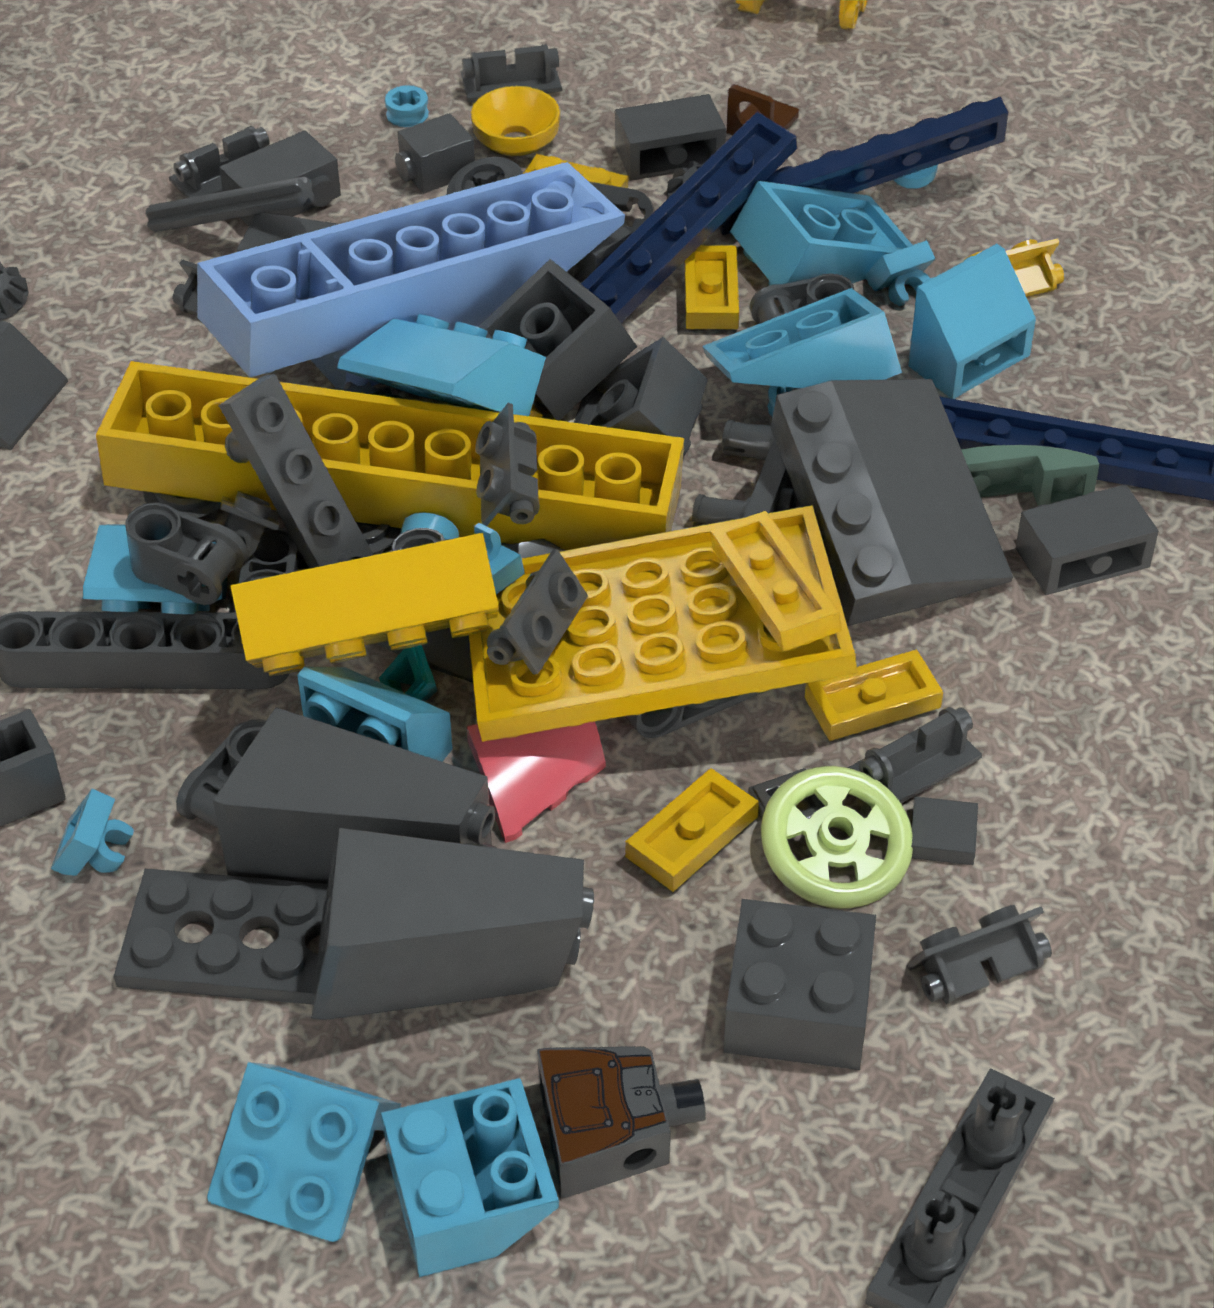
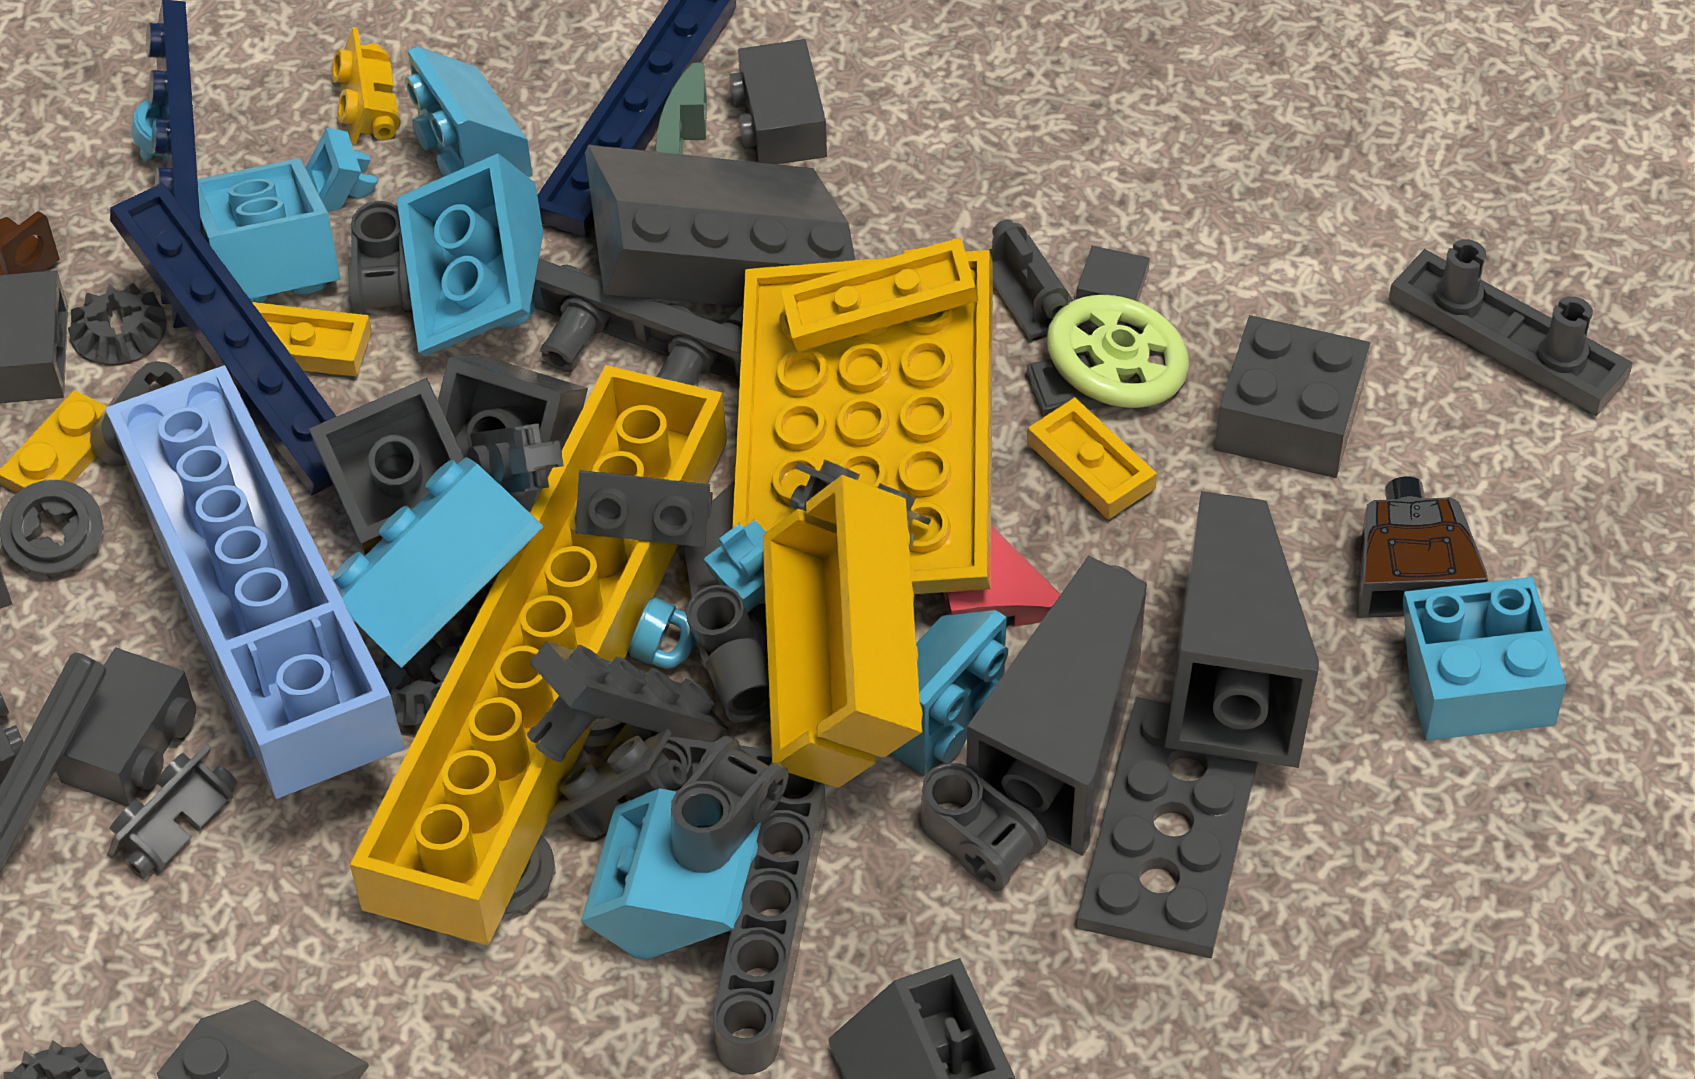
camera: 80 degrees left, 5 degrees up
(87, 834) = (1029, 969): medium azure tile -> none
(296, 1150) = (1428, 788): medium azure bracket -> none
(555, 389) = (516, 457): none -> dark grey hinge
(956, 960) = (1256, 272): dark grey hinge -> none

